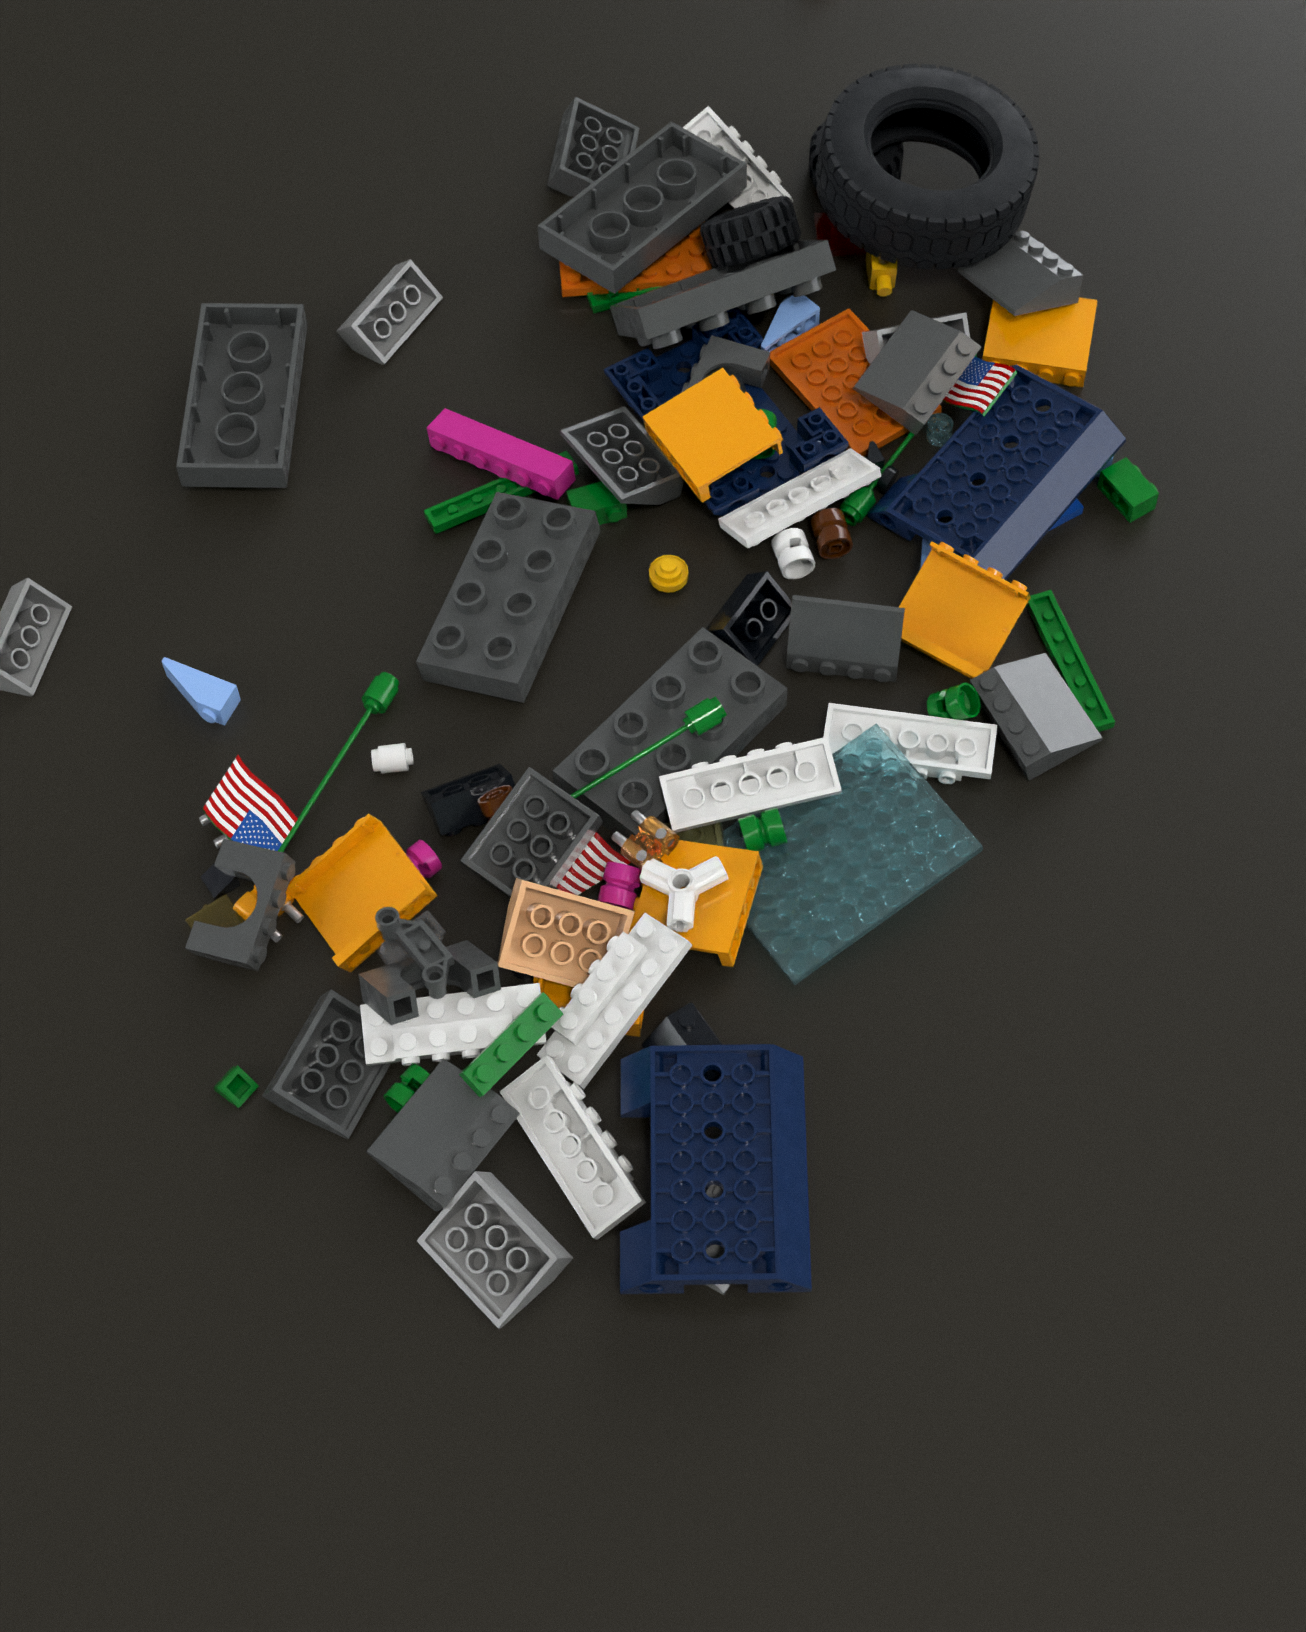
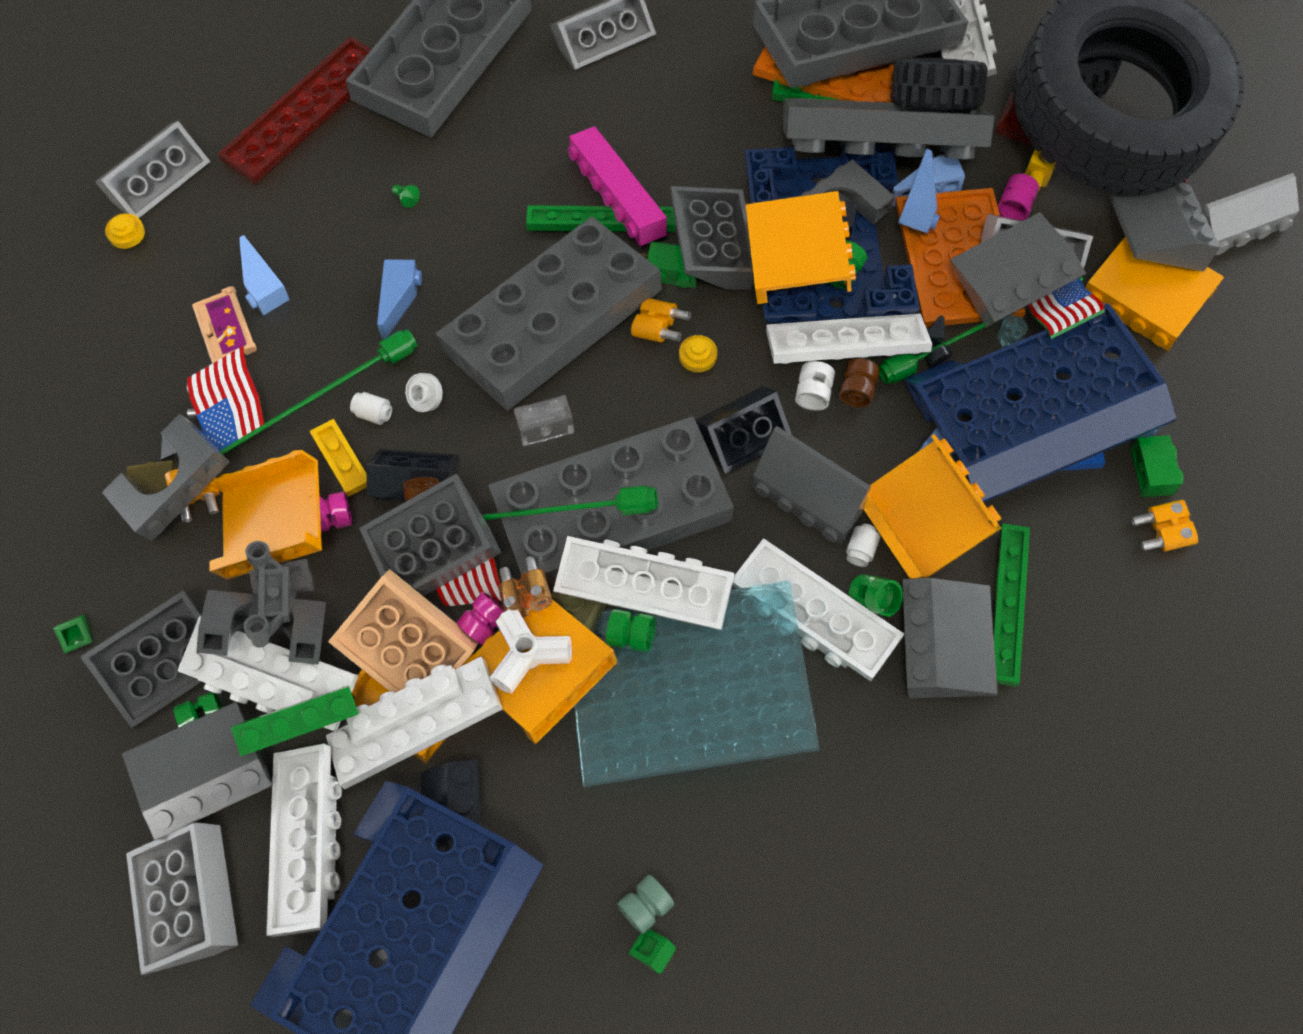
camera: 25 degrees right, 5 degrees up
(32, 708) = (125, 231): none -> yellow plate
(134, 519) = (295, 114): none -> clear red plate
(187, 744) = (225, 321): none -> door
(295, 551) = (407, 195): none -> green rock
(346, 640) = (397, 292): none -> medium blue slope
(395, 816) = (340, 457): none -> yellow plate
(434, 721) = (423, 392): none -> white plate
(564, 695) = (544, 420): none -> clear brick
(610, 560) = (654, 320): none -> light orange piece
(798, 347) = (922, 200): none -> medium blue slope
(877, 306) = (1018, 196): none -> dark pink wheel
(907, 1048) = (645, 904): none -> sand green wheel
(916, 671) = (862, 545): none -> white brick
(933, 1083) = (652, 950): none -> green slope
(1092, 231) = (1253, 212): none -> light grey slope
(1168, 533) = (1171, 524): none -> light orange piece

